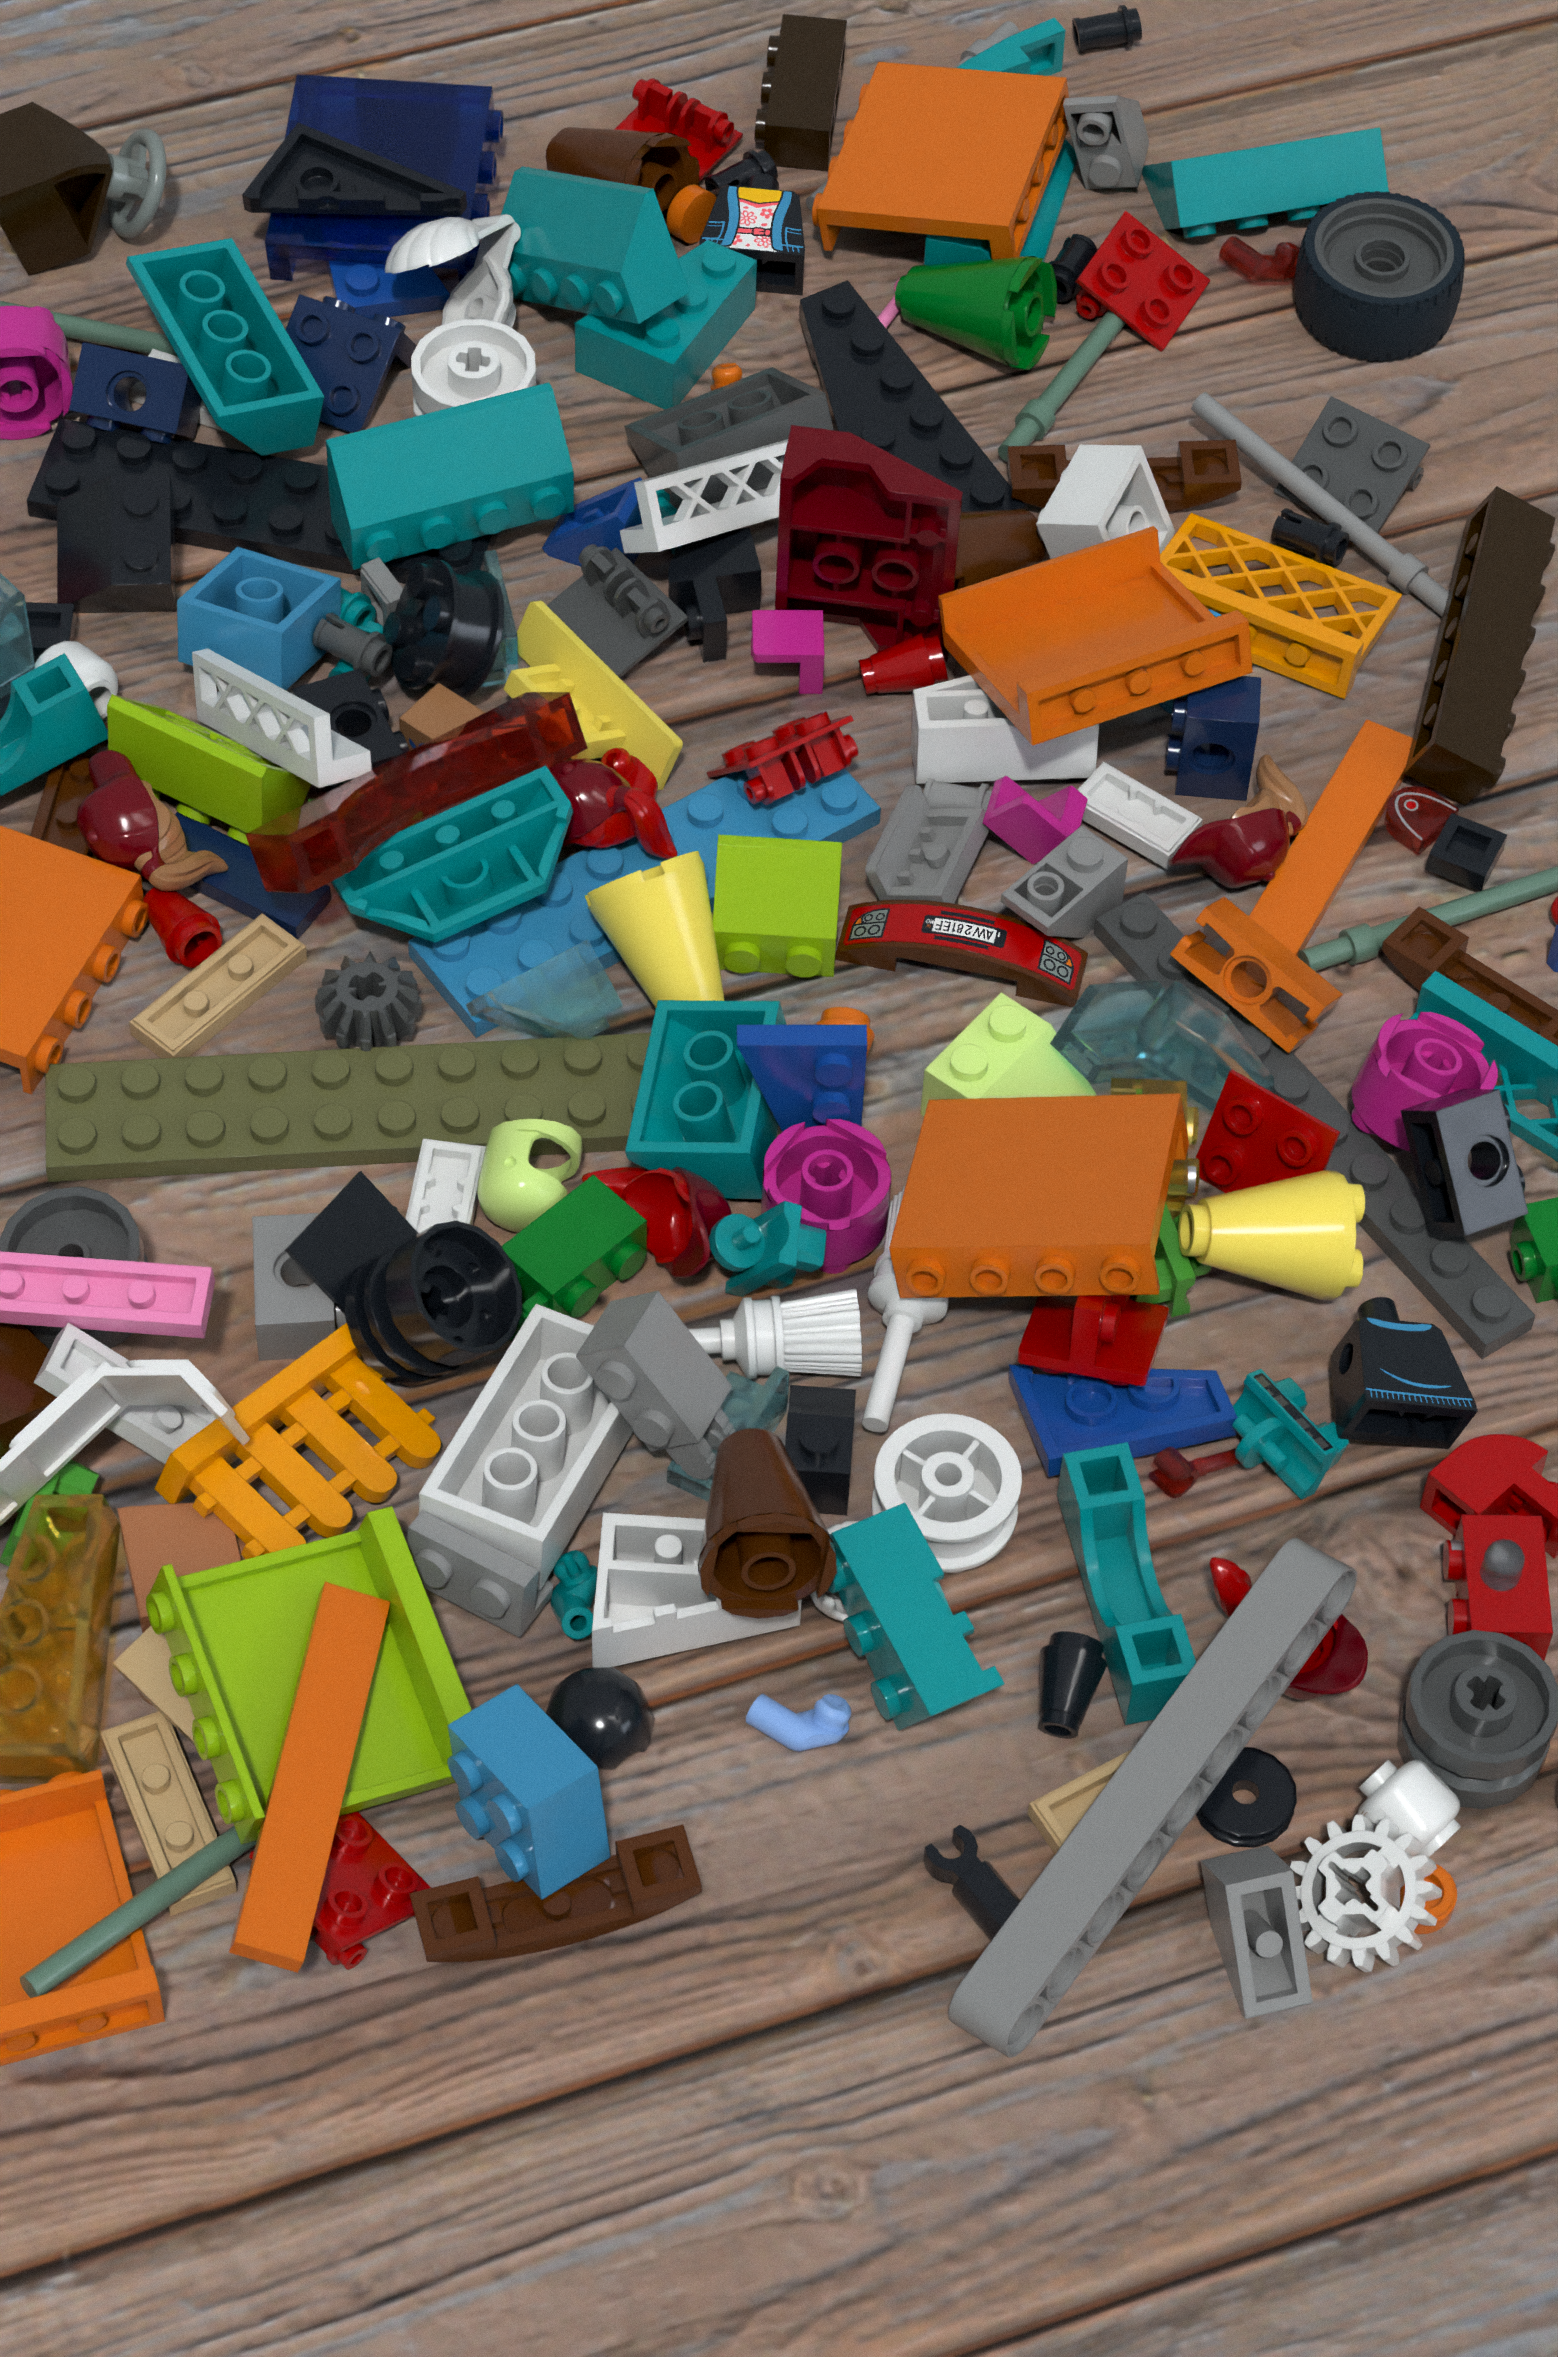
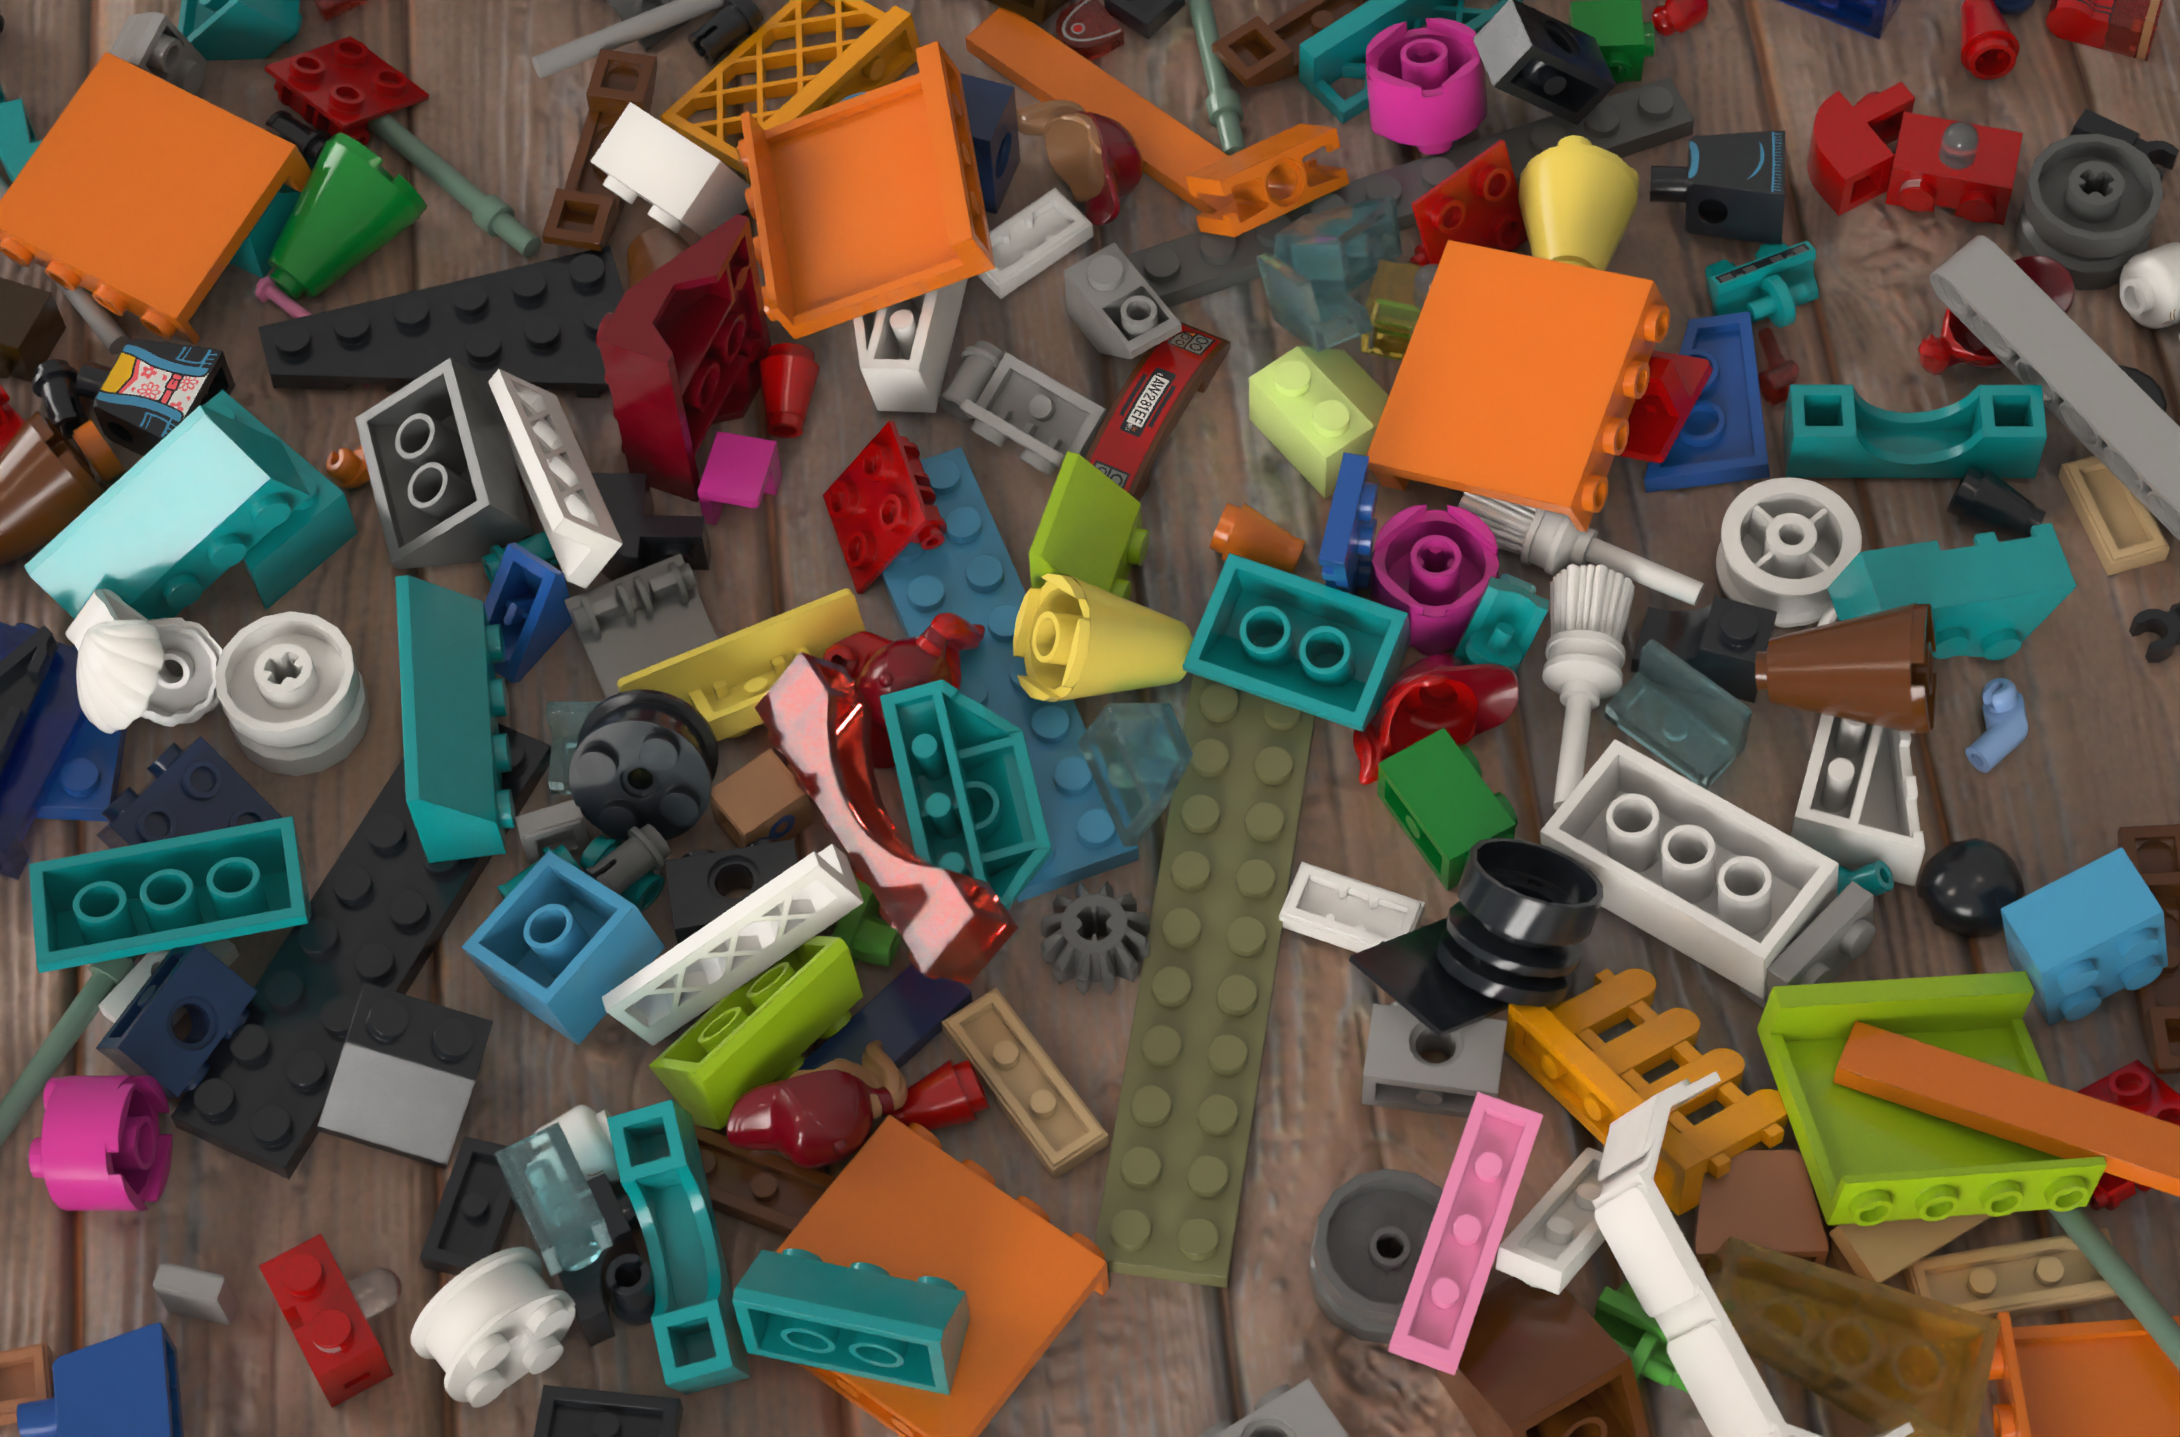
camera: 70 degrees left, 5 degrees up
(512, 1189) = (1353, 838): yellowish green helmet -> none
(659, 1380) = (1666, 732): light grey hinge -> none
(1030, 824) = (1021, 315): dark pink panel -> none

